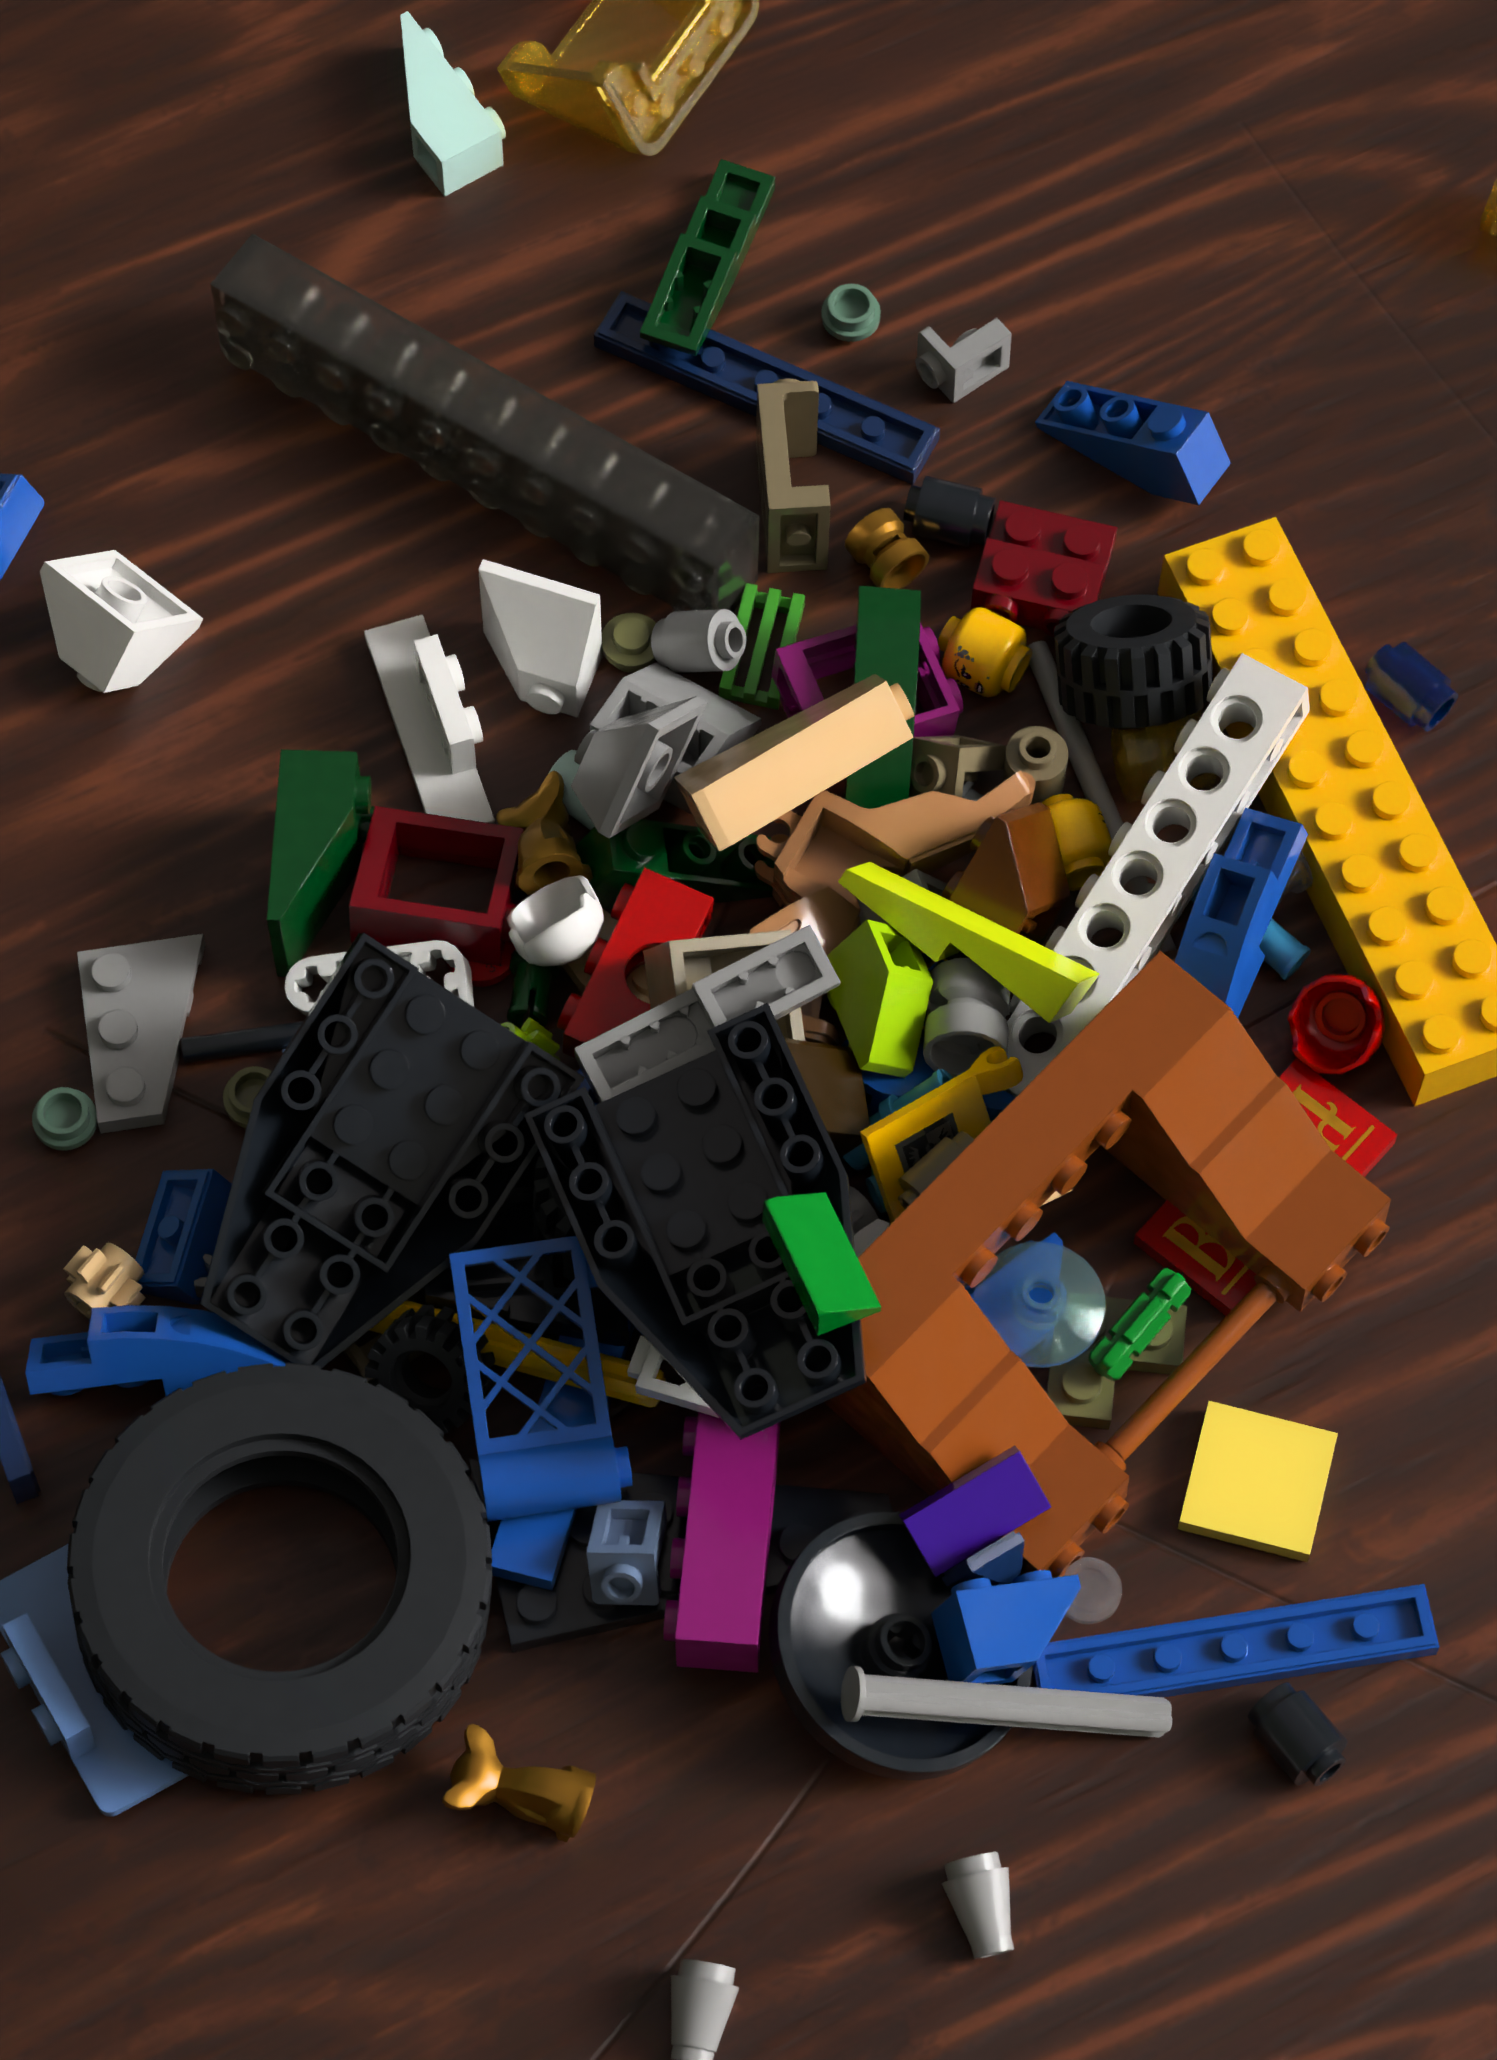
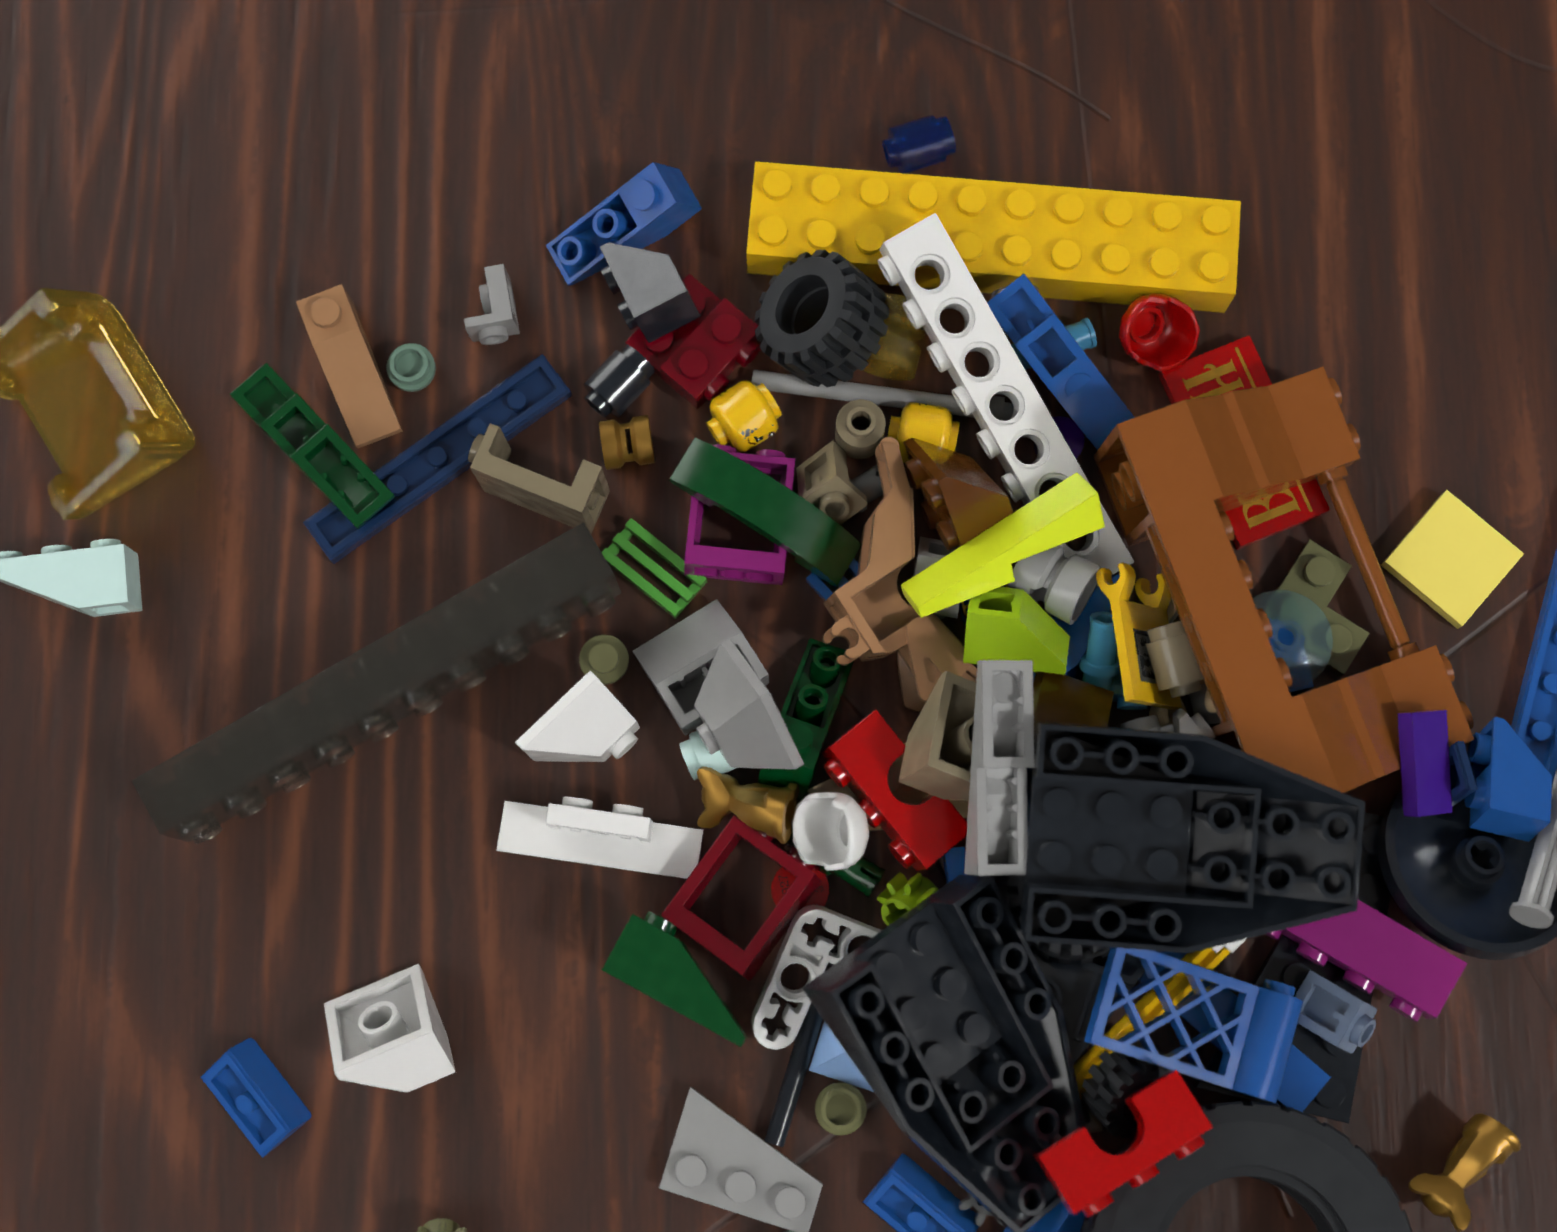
camera: 60 degrees left, 15 degrees up
(396, 1378) = (1166, 1124): none -> red arch
(698, 641) = (637, 612): light grey brick -> none
(794, 760) = (803, 601): tan slope -> none
(819, 250) = (349, 365): none -> medium nougat slope
(819, 1260) = (1272, 789): green slope -> none
(1064, 486) = (651, 289): none -> slope
(1099, 1591) = (1484, 706): clear plate -> none
(1139, 1324) = (1322, 579): green axle -> none

